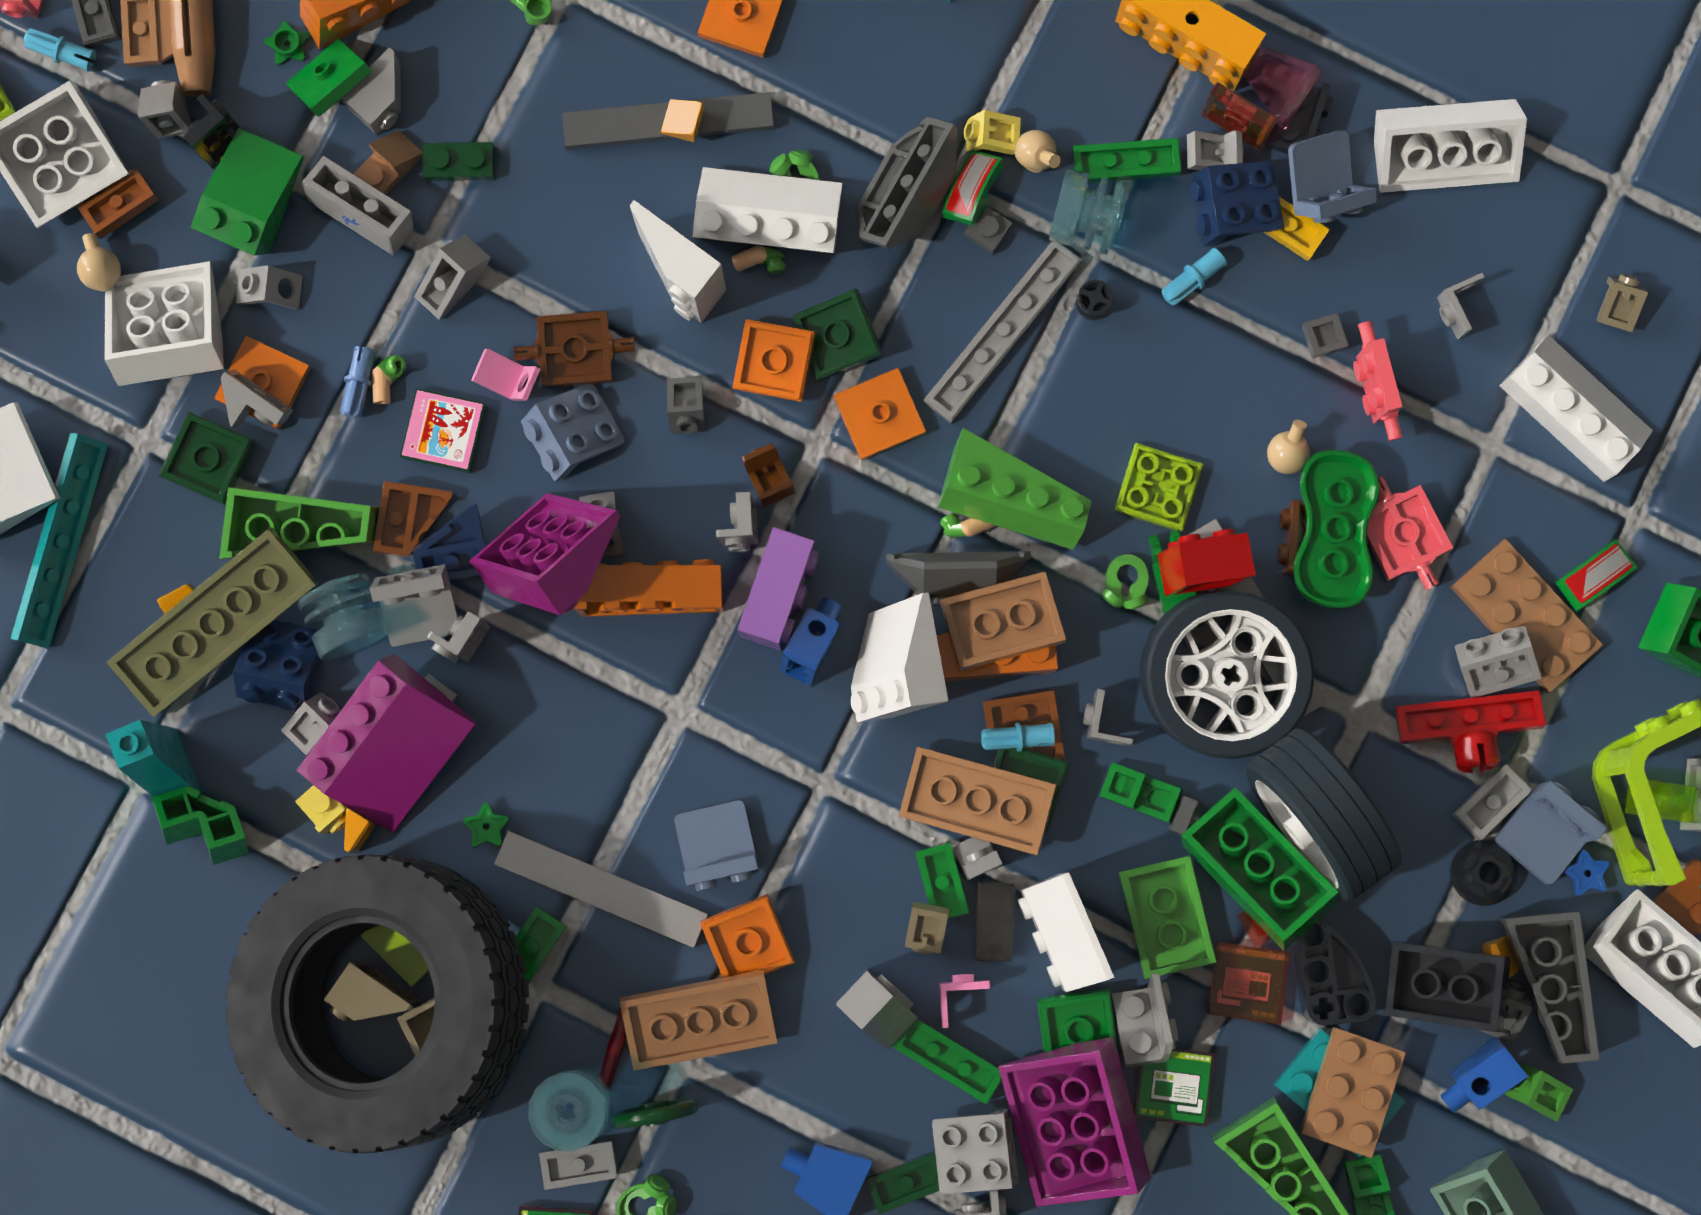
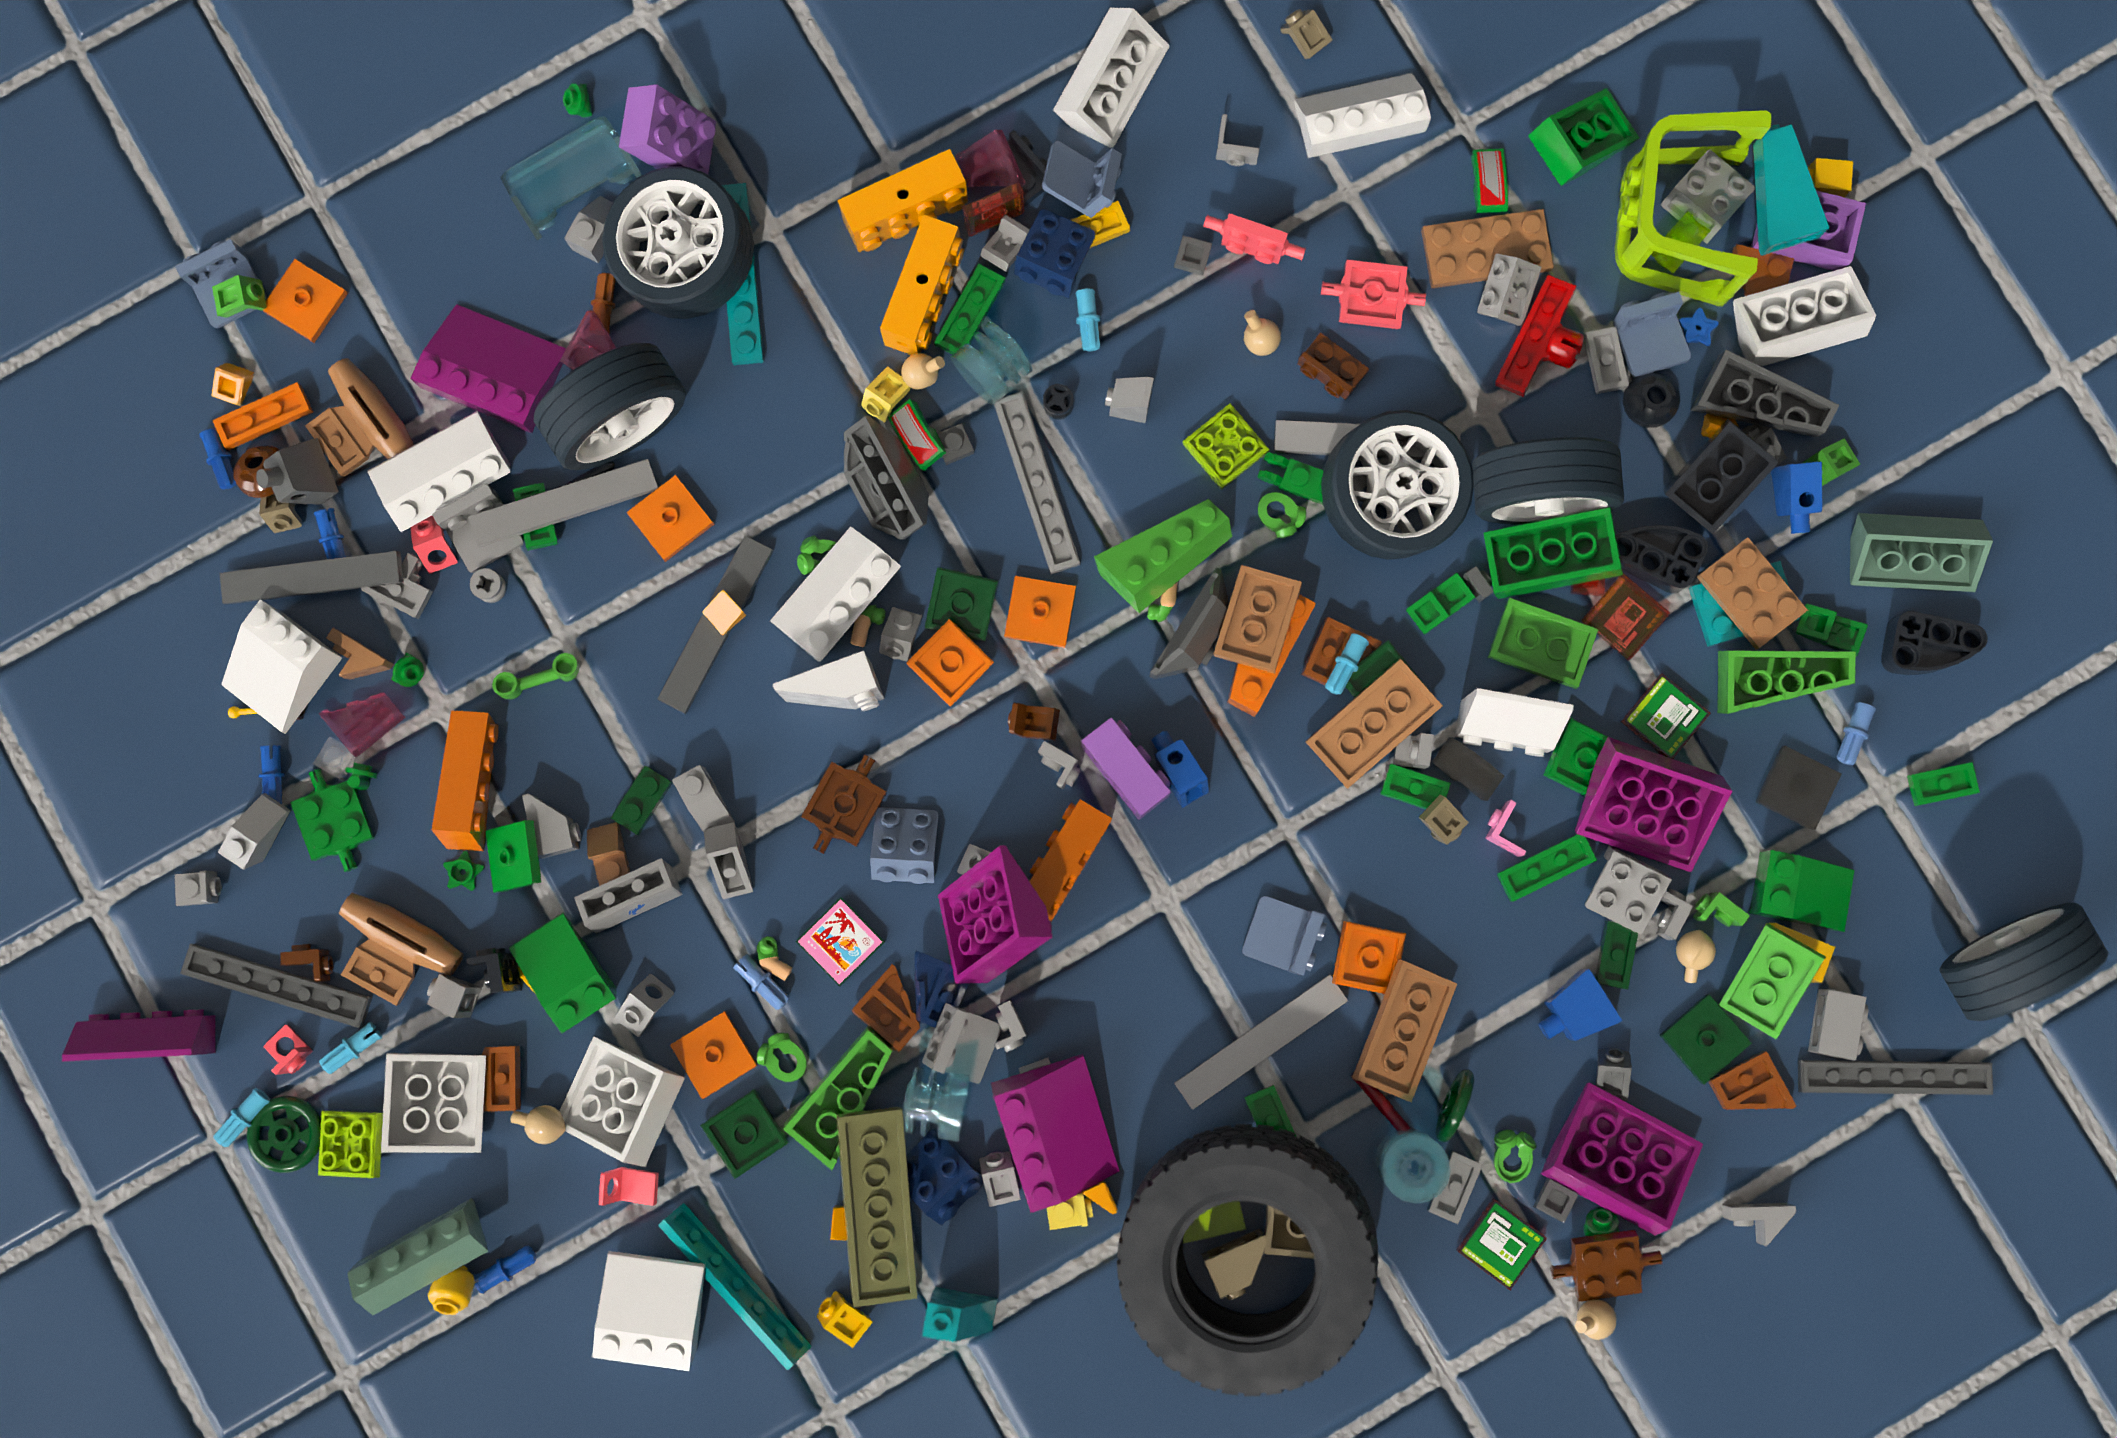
camera: 55 degrees left, 0 degrees up
(88, 661) = (843, 1319): none -> yellow bracket
(92, 383) = (629, 1186): none -> coral bracket
(189, 813) = (1009, 1314): green brick -> none
(243, 395) = (717, 1072): light grey slope -> none
(290, 433) = (767, 1058): none -> bright green piece
(491, 835) = (1161, 1088): green plate -> none
(495, 214) = (702, 798): none -> light grey slope
(505, 376) = (831, 868): bright pink bracket -> none
(685, 405) = (940, 748): dark grey bracket -> none
(771, 296) = (899, 634): none -> light grey bracket
(878, 1008) = (1478, 893): light grey wedge -> none
(898, 662) = (1238, 714): white slope -> none
(1092, 718) = (1365, 602): light grey bracket -> none
(1118, 97) = (921, 286): none -> light orange brick
(1142, 365) = (1130, 398): none -> light grey slope
(1143, 1024) = (1611, 707): light grey bracket -> none
(1206, 562) = (1308, 446): red piece -> none
(1334, 555) = (1362, 354): green plate -> none

